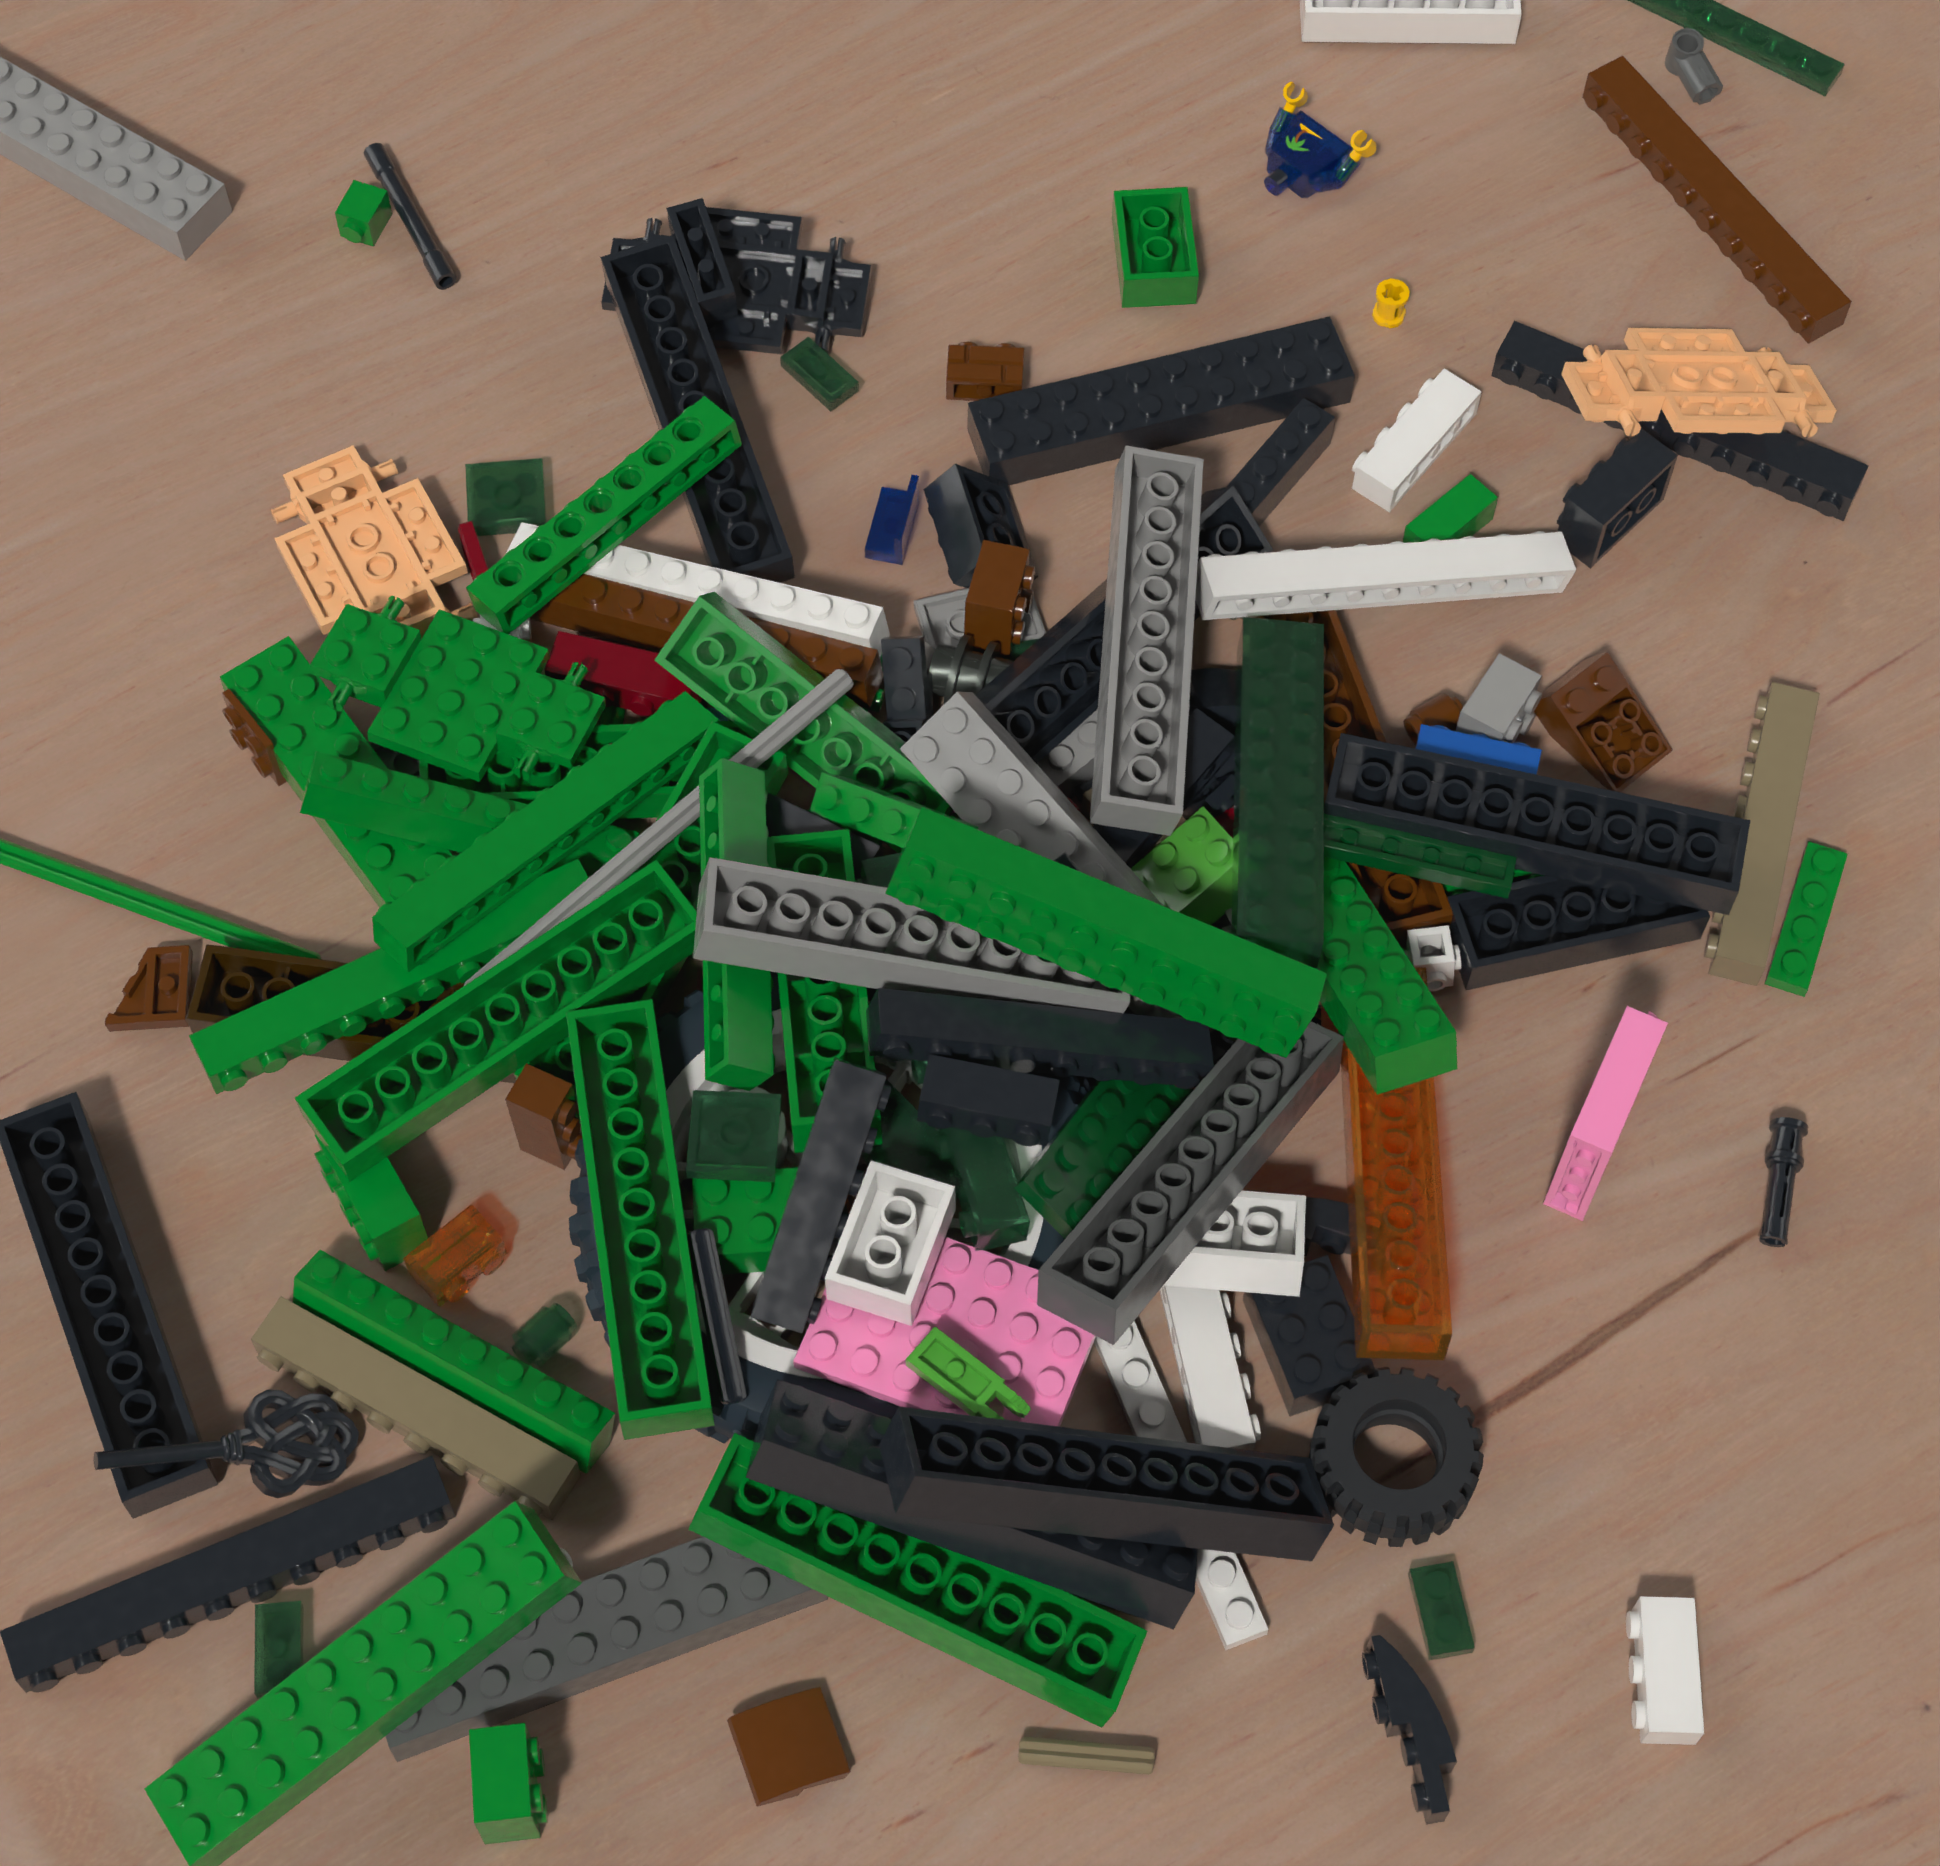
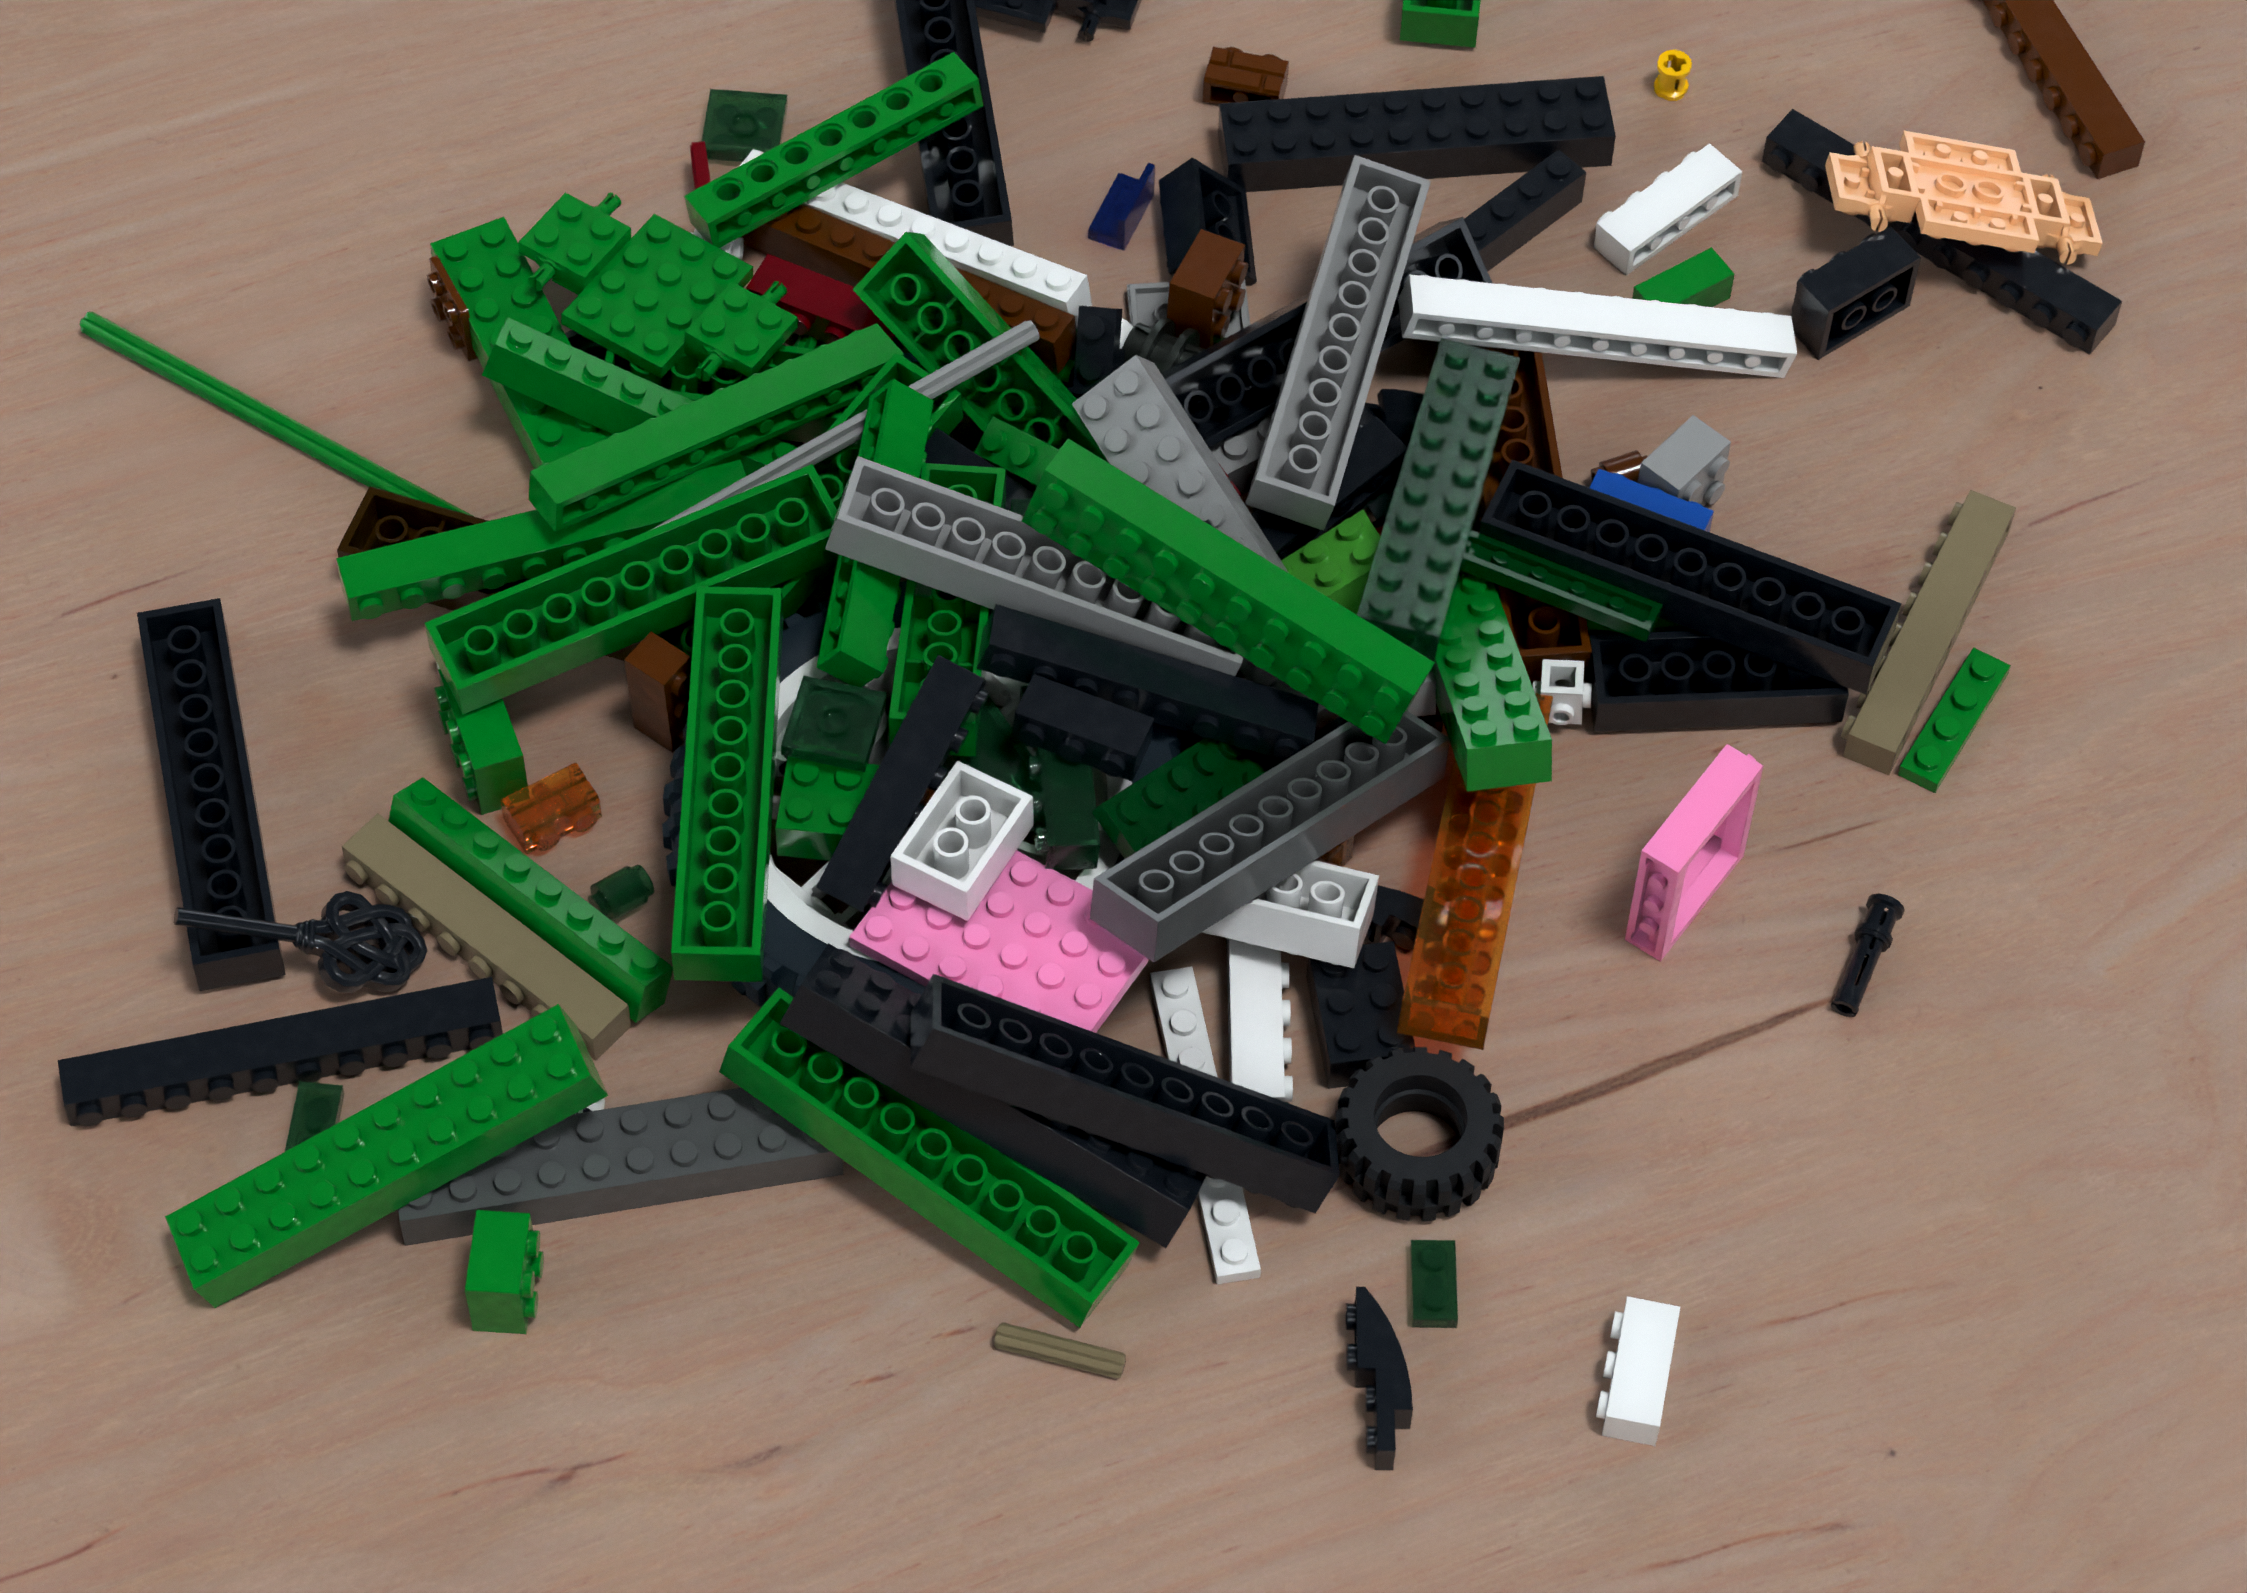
camera: 10 degrees right, 5 degrees down
(157, 992) = (313, 527): reddish brown wing -> none
(366, 542) = (597, 142): light nougat piece -> none
(716, 1316) = (784, 883): black axle -> none
(788, 1746) = (777, 1292): reddish brown slope -> none
(819, 374) = (1080, 57): clear green plate -> none
(962, 1377) = (1005, 970): bright green hinge -> none
(1602, 723) = (1791, 503): reddish brown slope -> none

